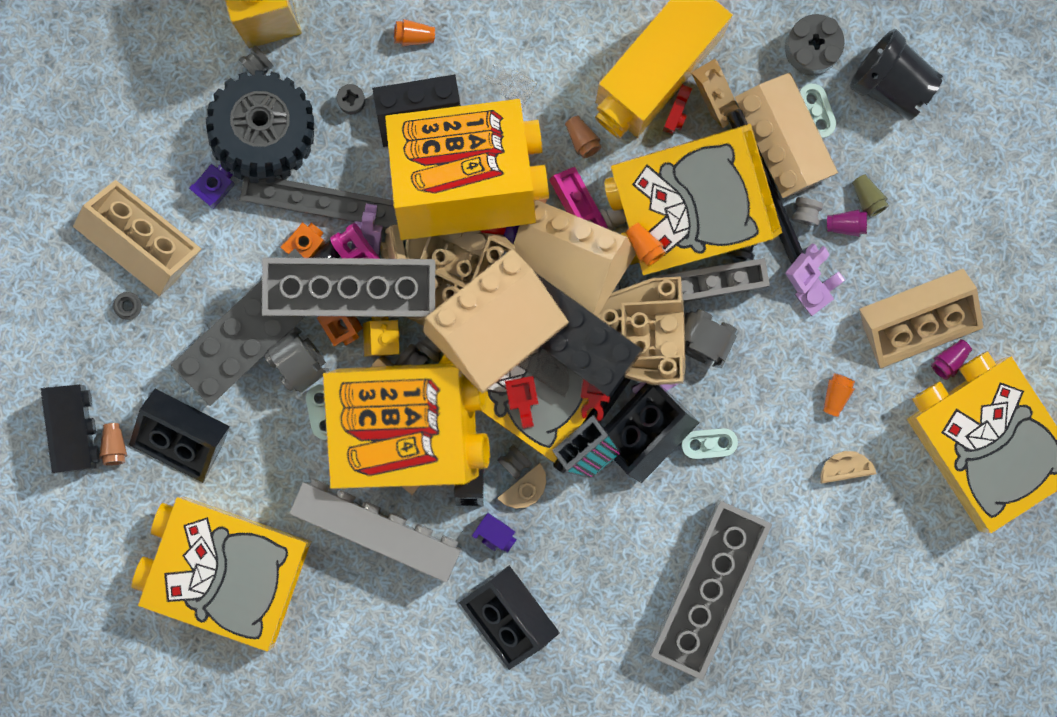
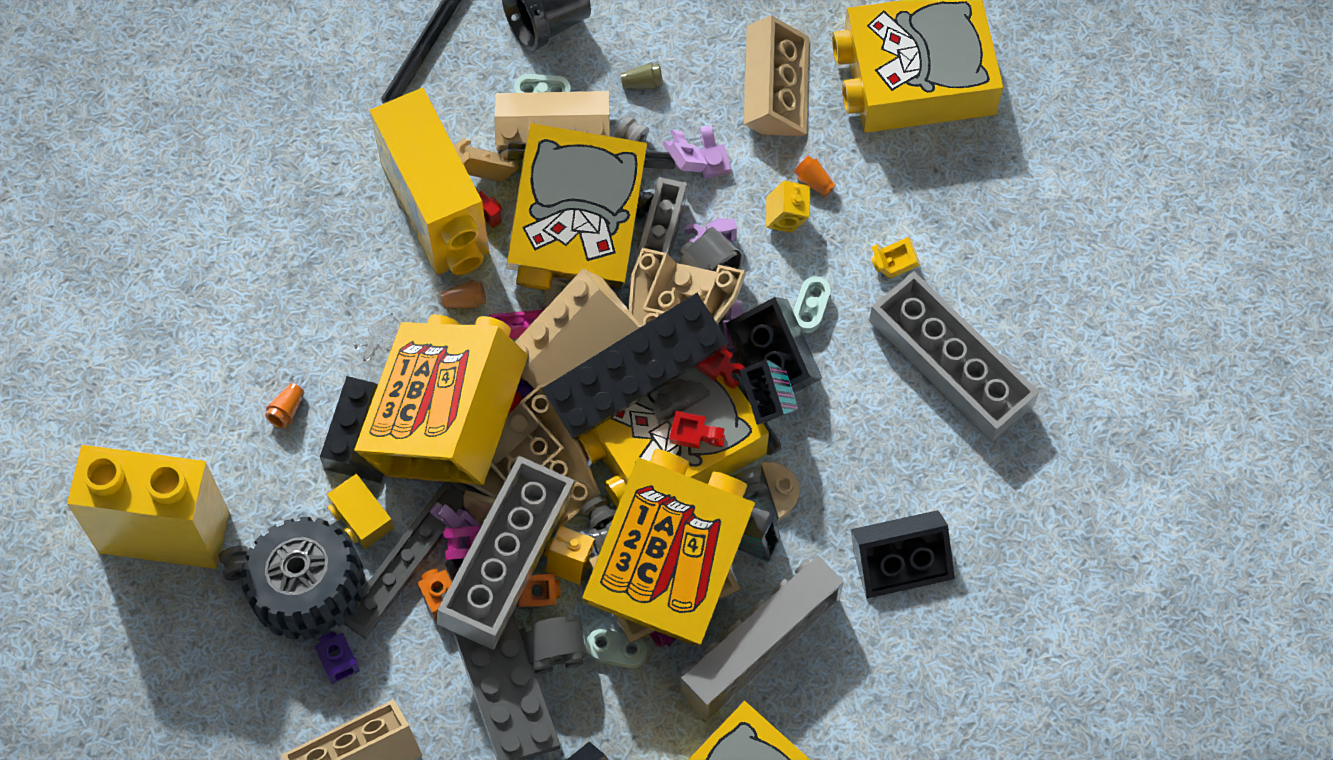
camera: 65 degrees left, 20 degrees down
(344, 143) = (359, 511): none -> yellow brick
(352, 105) = (318, 496): dark grey wheel -> none
(495, 321) = (609, 407): tan slope -> none
(495, 533) = (812, 531): dark purple brick -> none
(645, 244) = (598, 261): orange cone -> none
(745, 332) = (726, 227): none -> lavender plate
(787, 499) = (895, 258): none -> yellow bracket
(793, 383) = (787, 206): none -> yellow head
(824, 32) = (480, 64): dark grey brick -> none
(846, 466) = (885, 197): tan plate -> none
(848, 223) = (659, 104): magenta cone -> none
(950, 360) = (827, 73): magenta cone -> none

